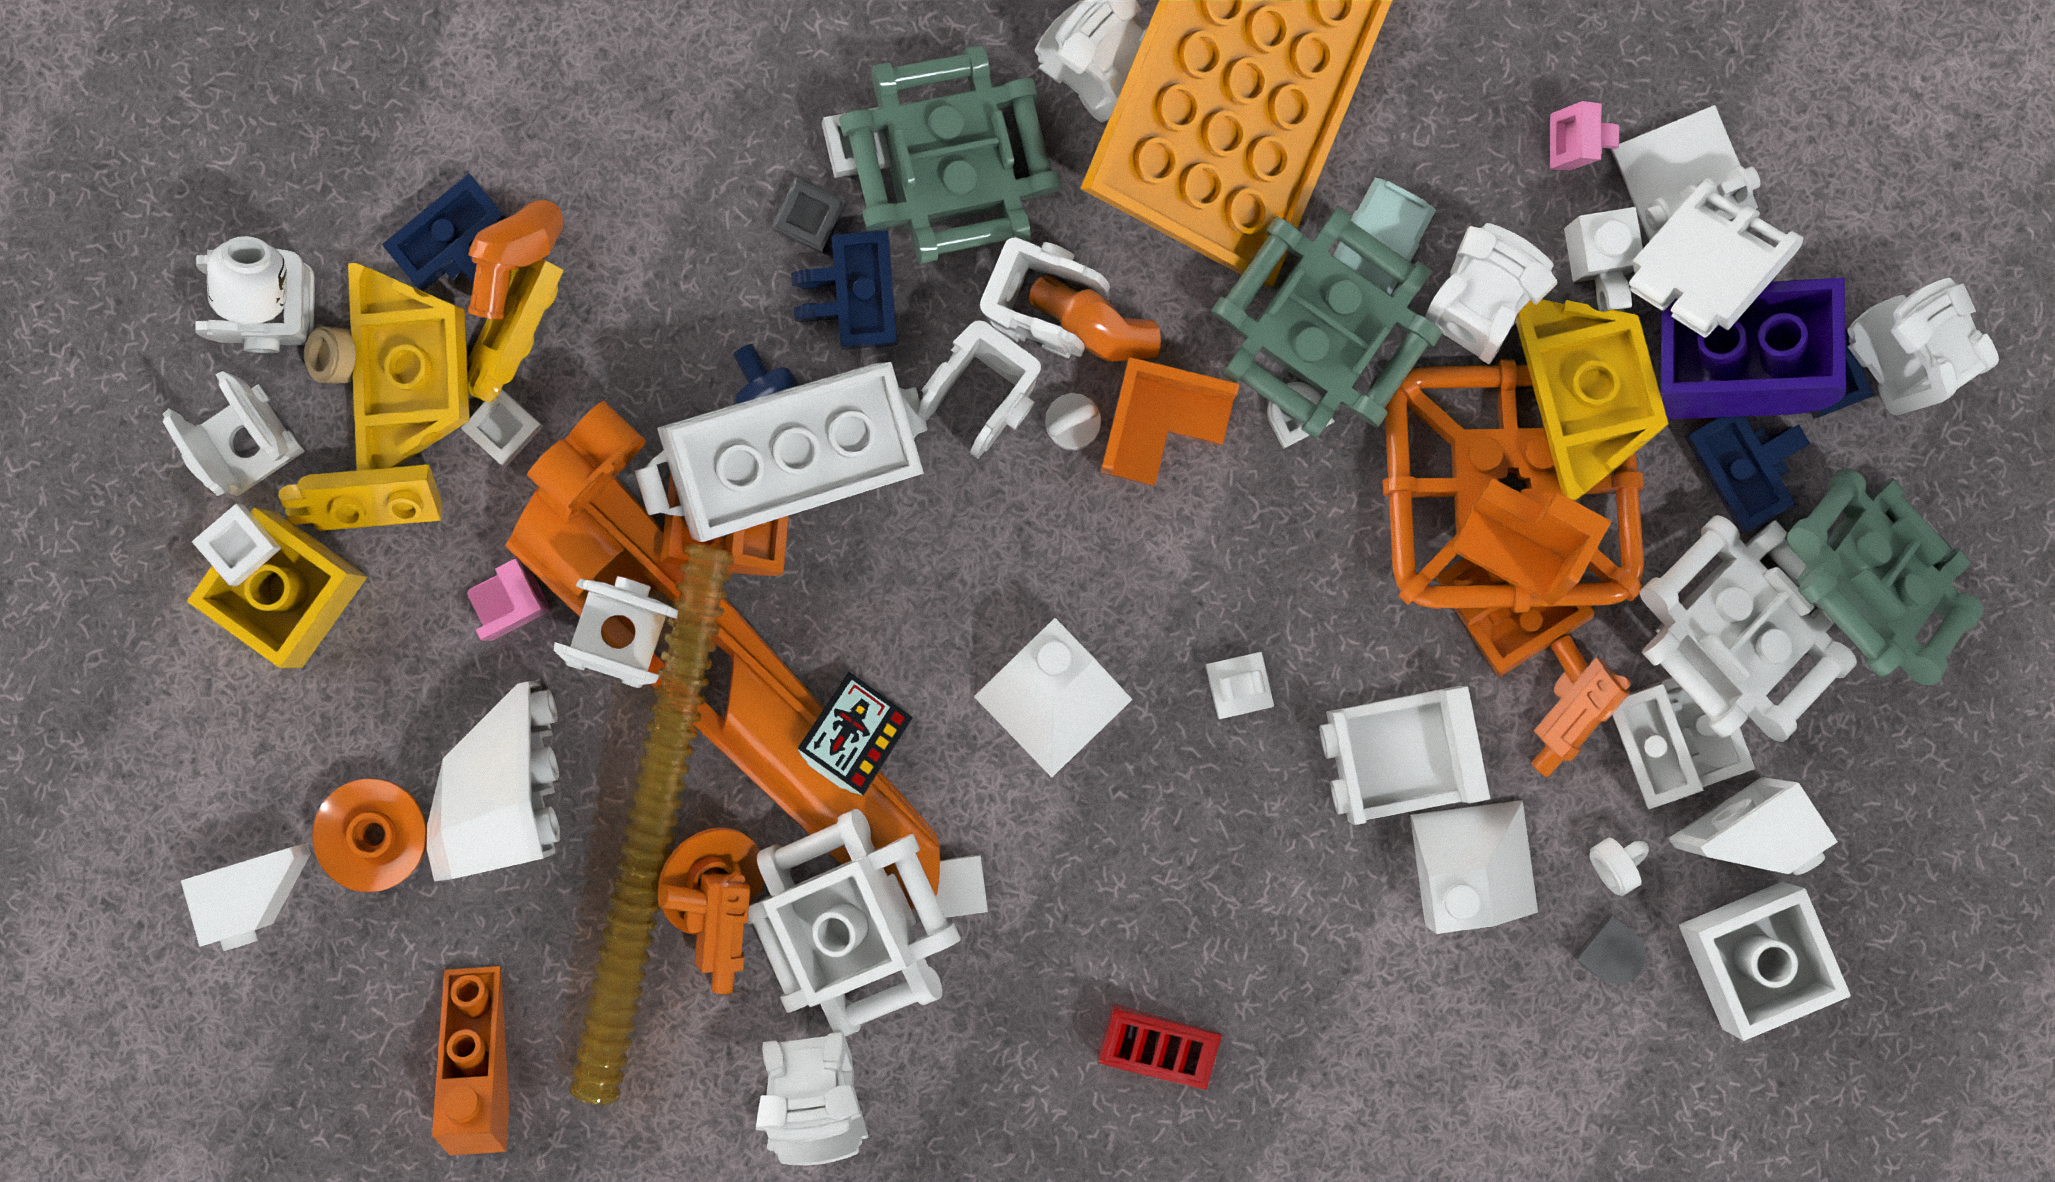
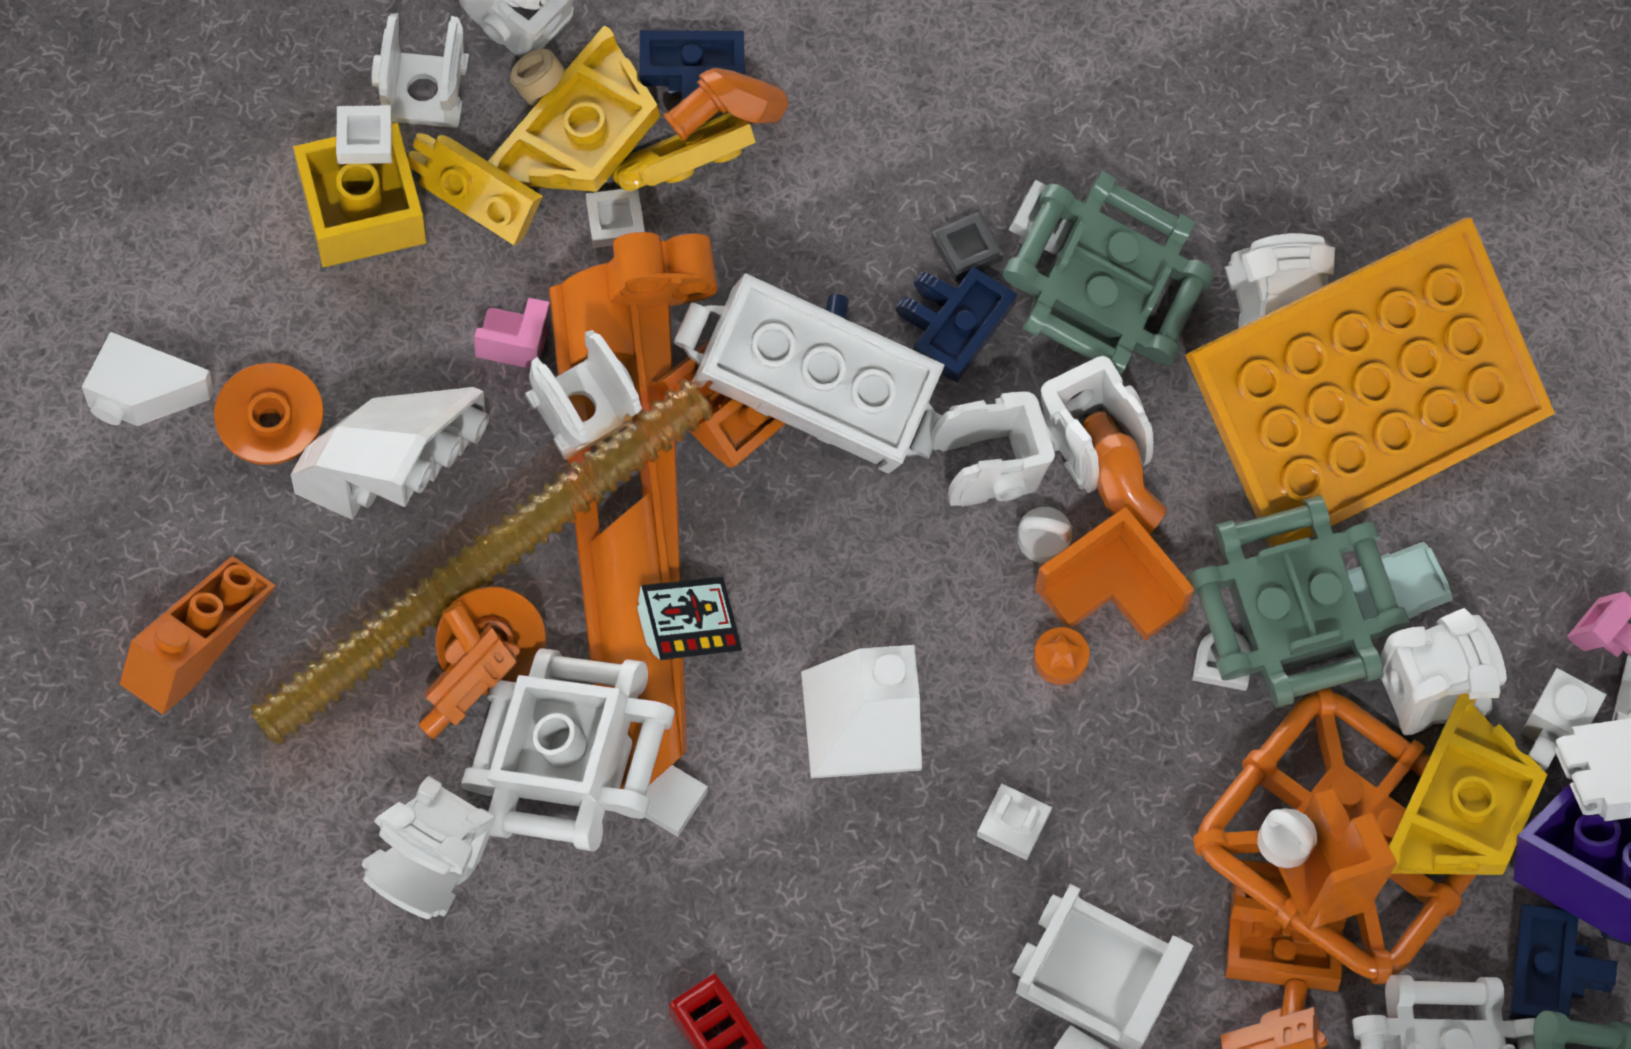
camera: 30 degrees right, 20 degrees down
(1167, 515) = (1061, 655): none -> orange tile
(1481, 545) = (1287, 838): none -> white tile

